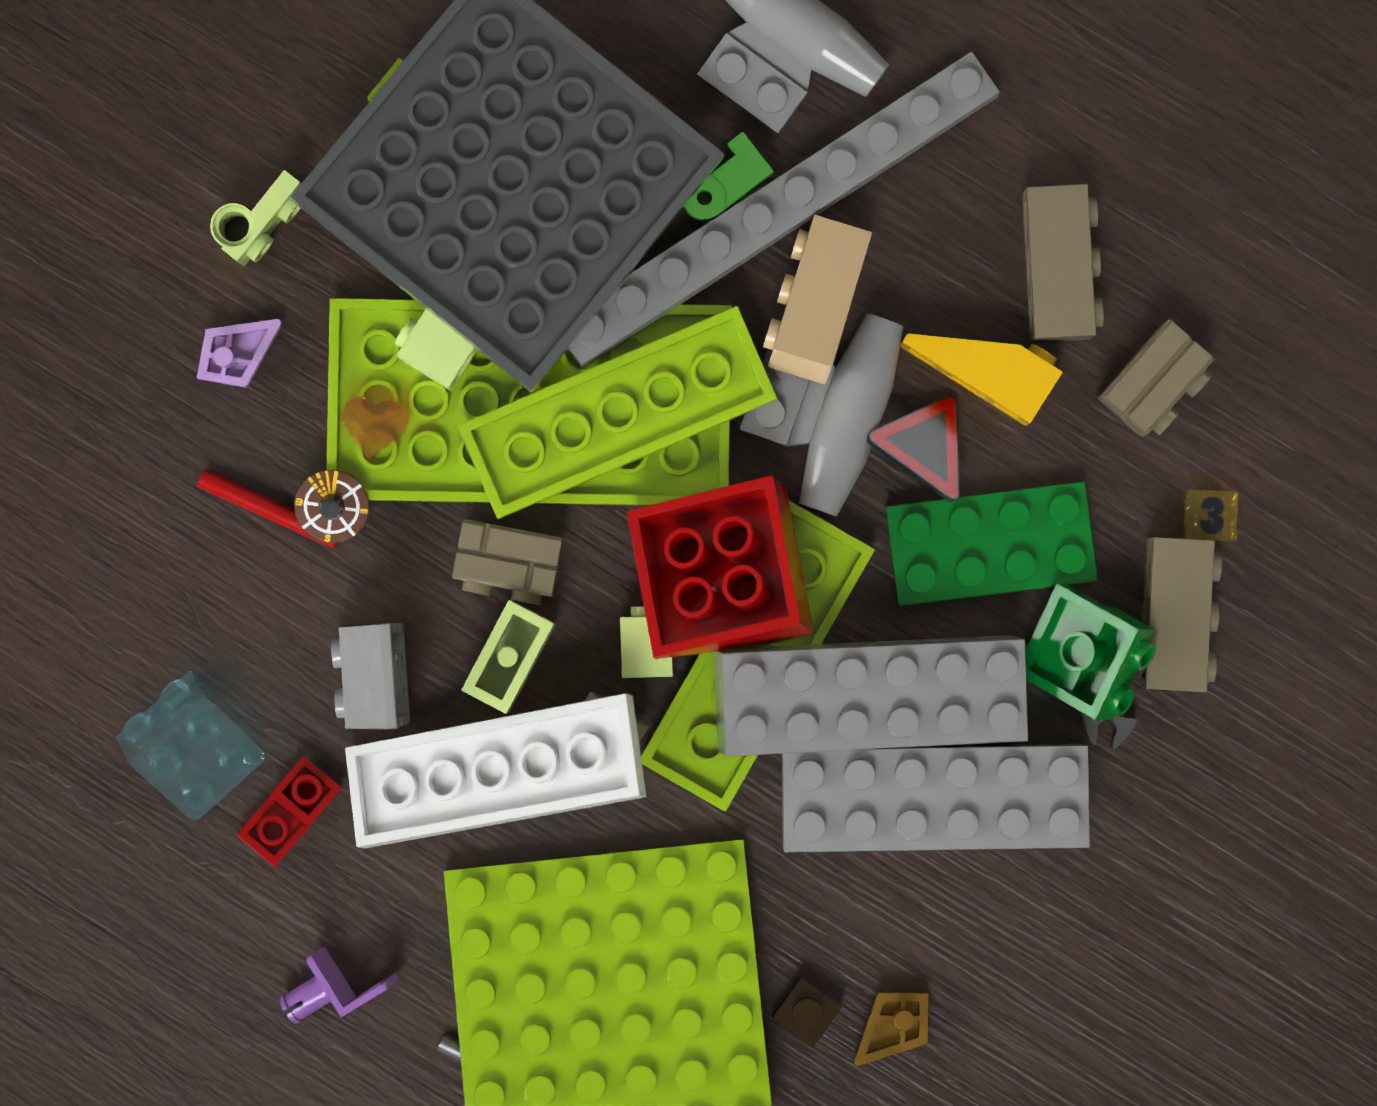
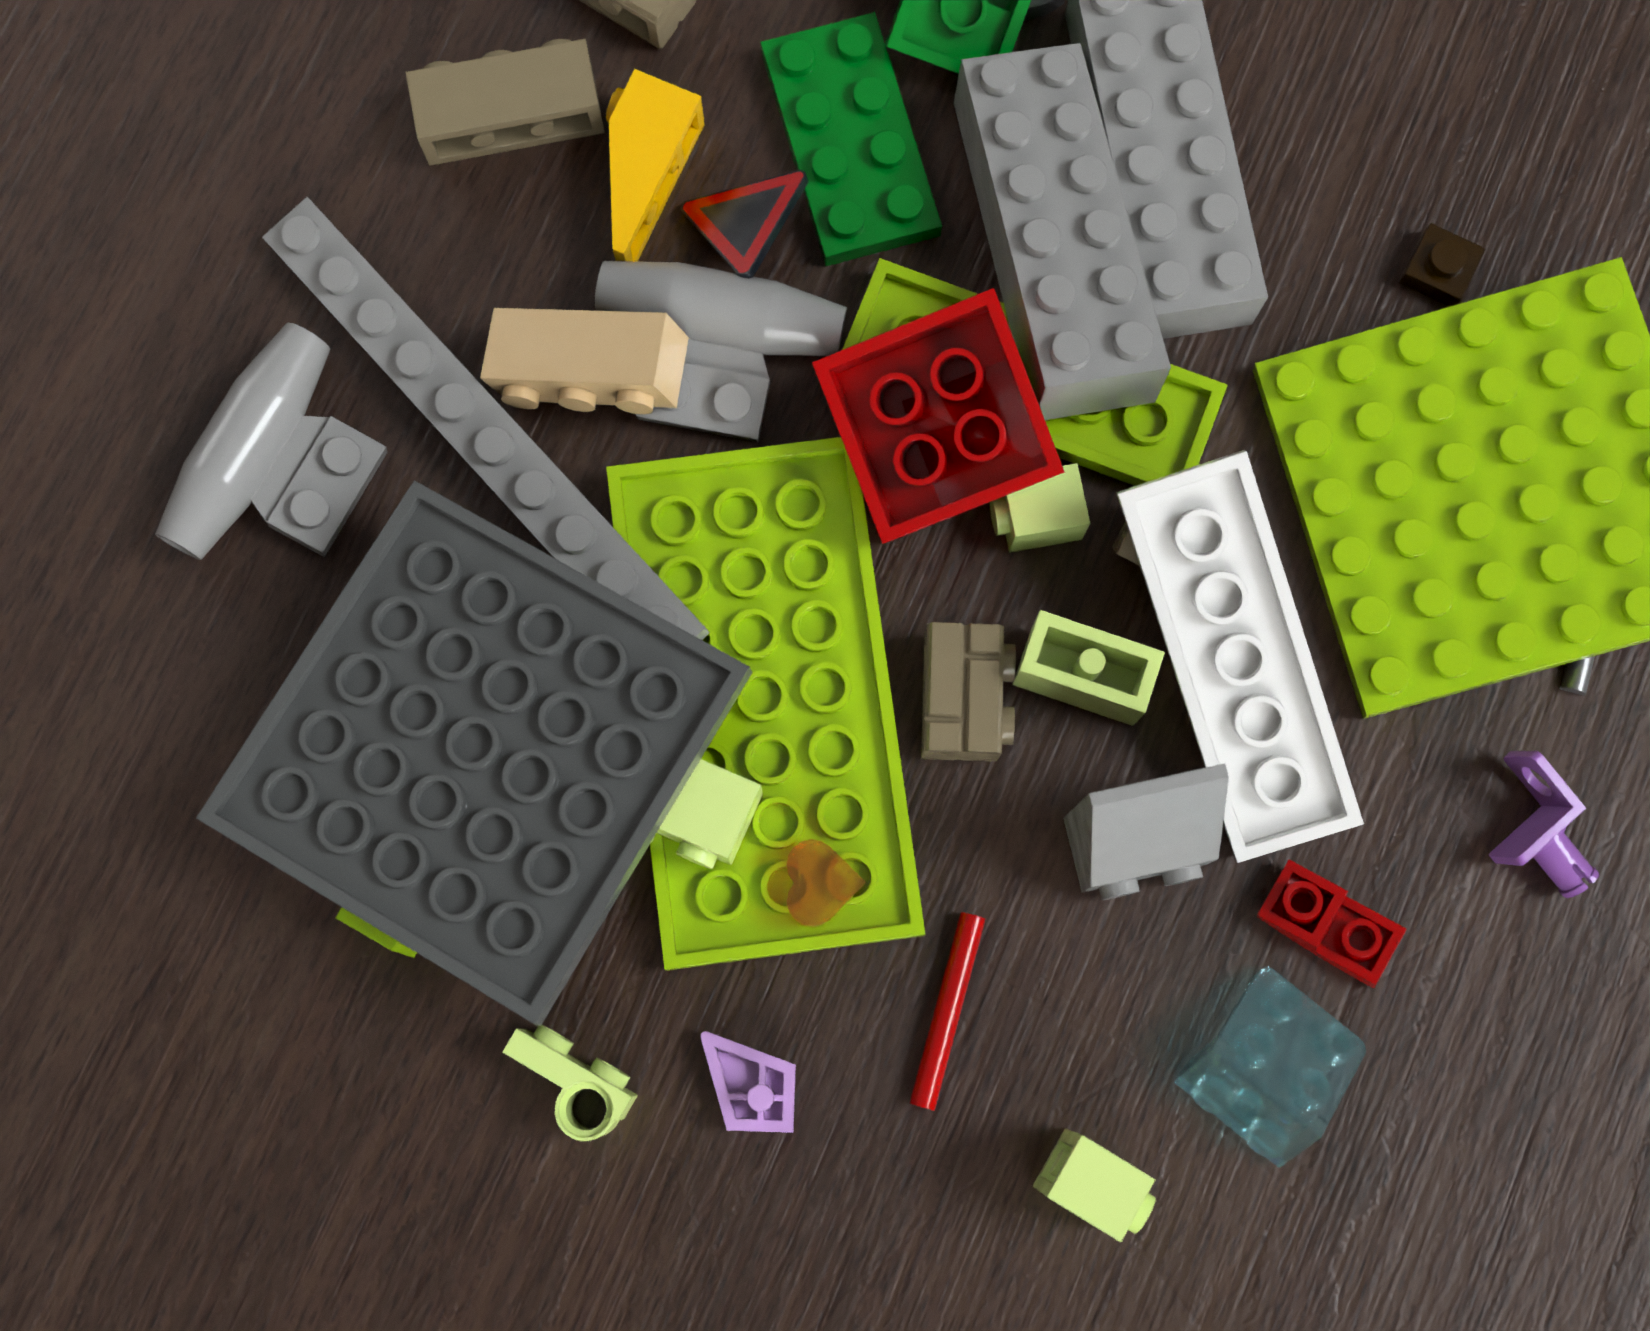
camera: 100 degrees left, 10 degrees down
(120, 592) = (1096, 1185): none -> yellowish green brick
(331, 506) = (933, 925): reddish brown piece -> none
(617, 412) = (761, 579): lime plate -> none
(730, 182) = (446, 475): bright green leg -> none
(894, 1025) = (1438, 164): pearl gold piece -> none

